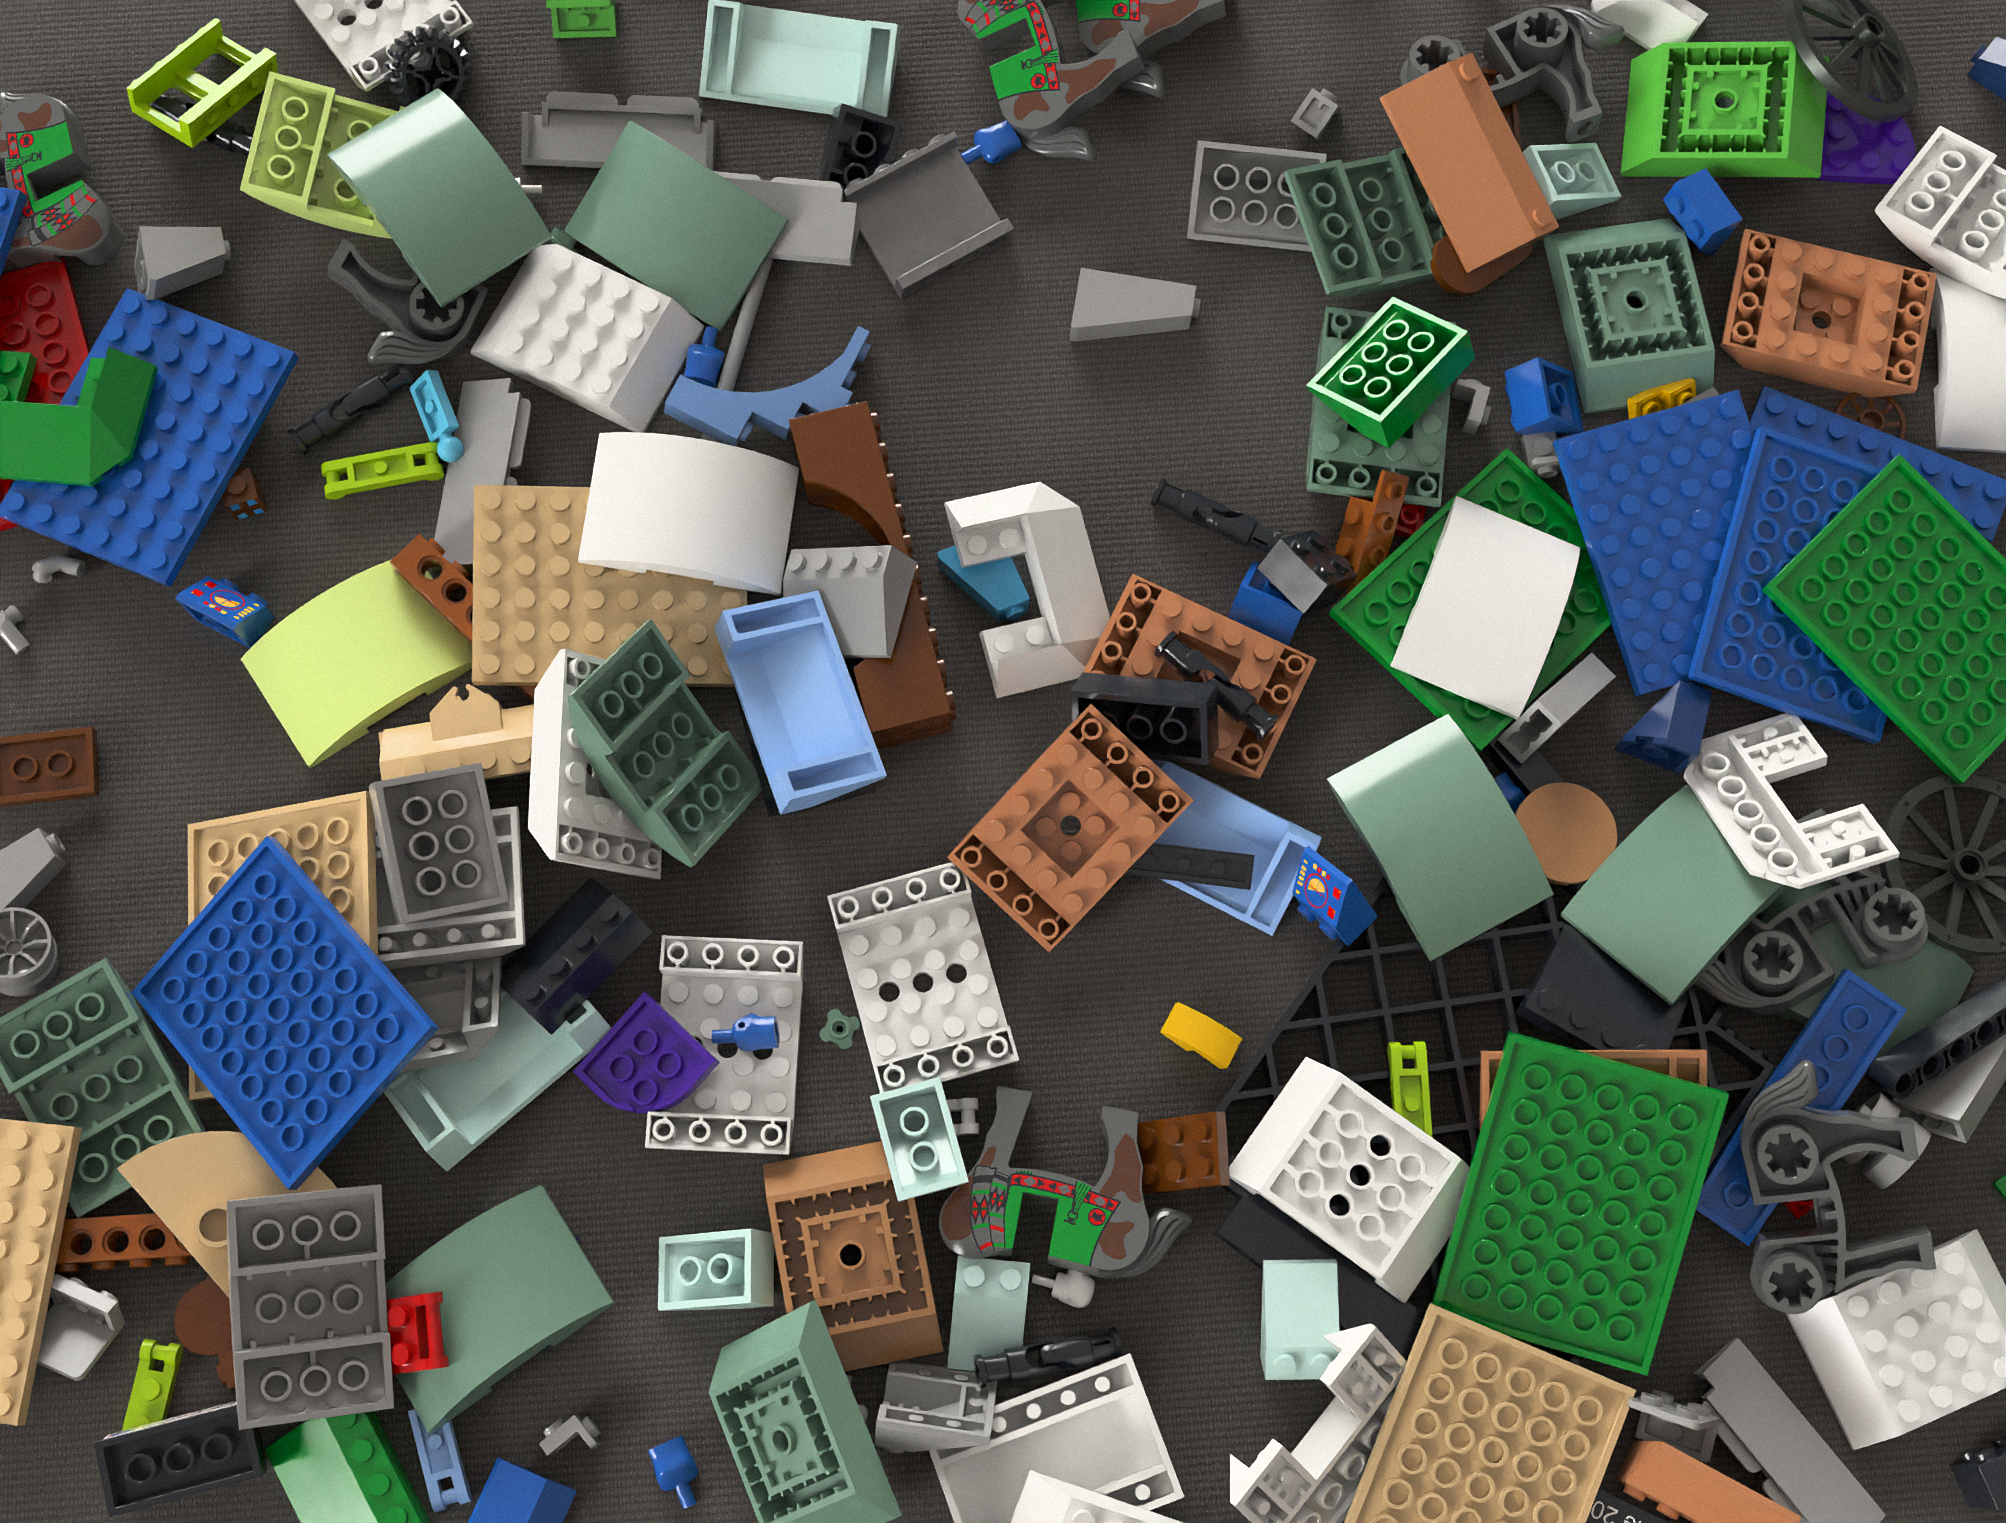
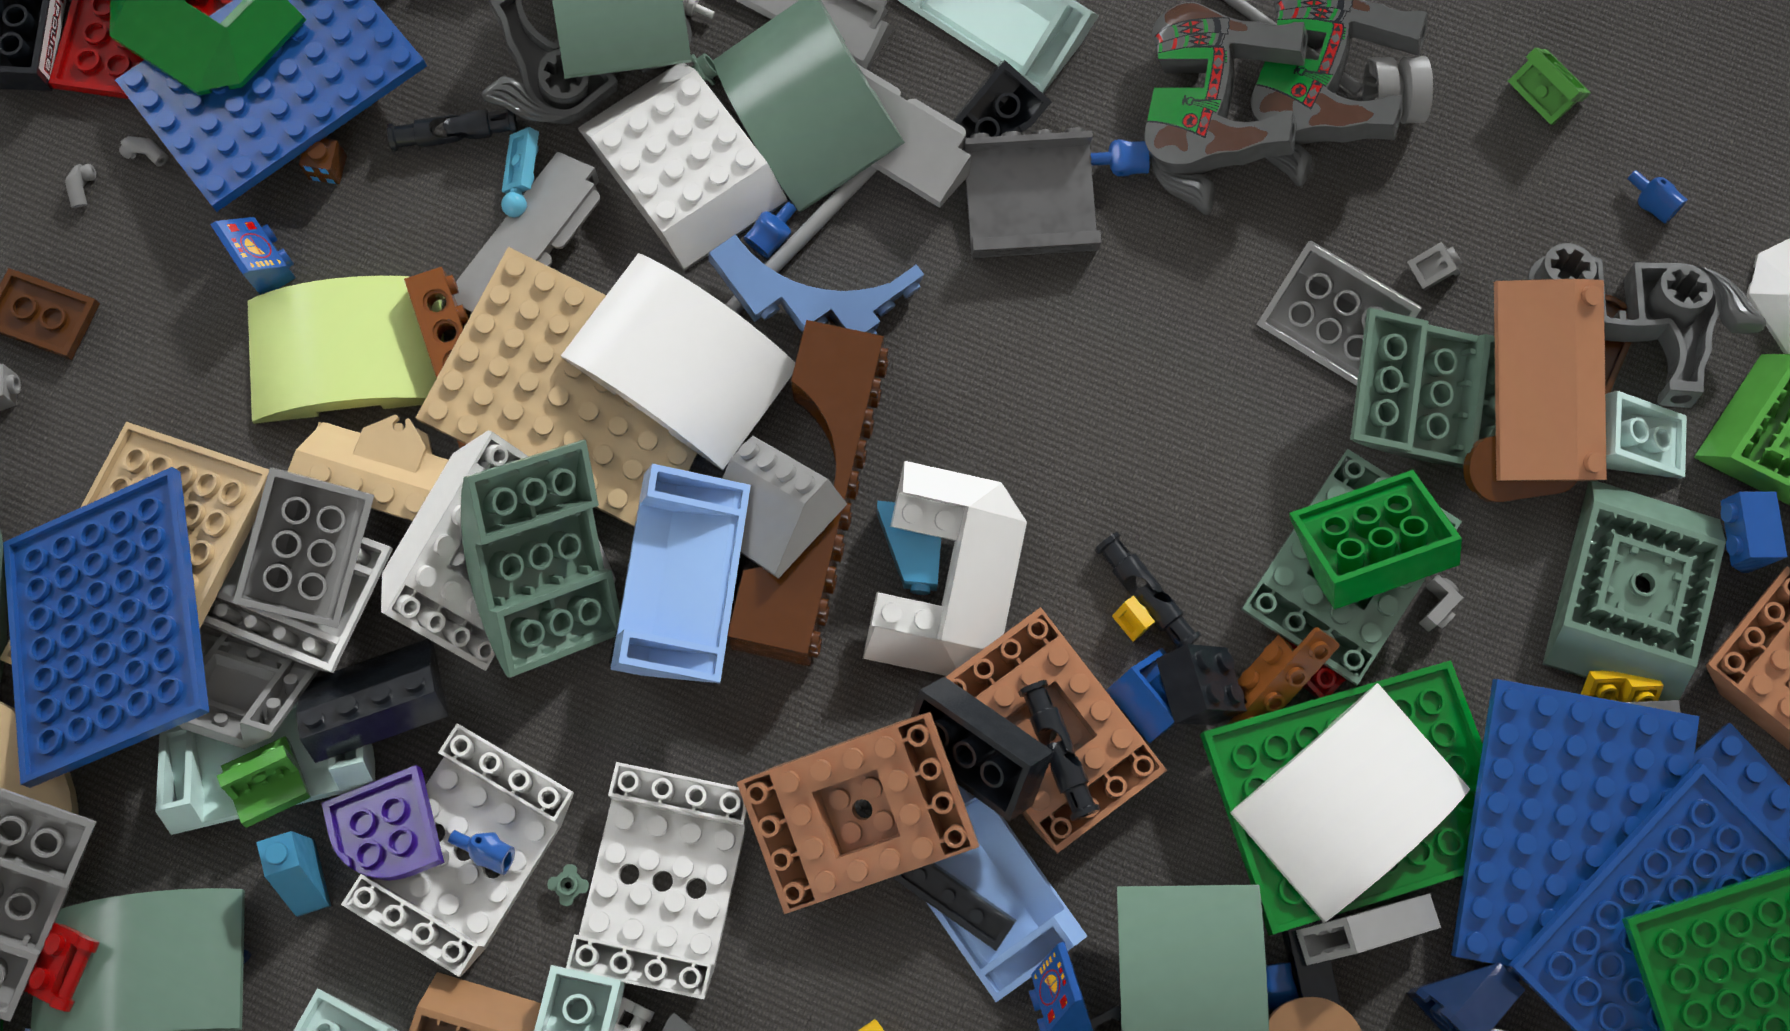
camera: 30 degrees right, 0 degrees up
(381, 470) = (448, 195): lime plate -> none
(510, 1078) = (264, 782): none -> bright green bracket
(585, 1142) = (295, 871): none -> dark azure slope
(1129, 305) = (1170, 360): light grey slope -> none
(1216, 546) = (1133, 618): none -> yellow plate
(1540, 454) = (1478, 680): light grey bracket -> none
(1543, 399) = (1509, 632): blue slope -> none

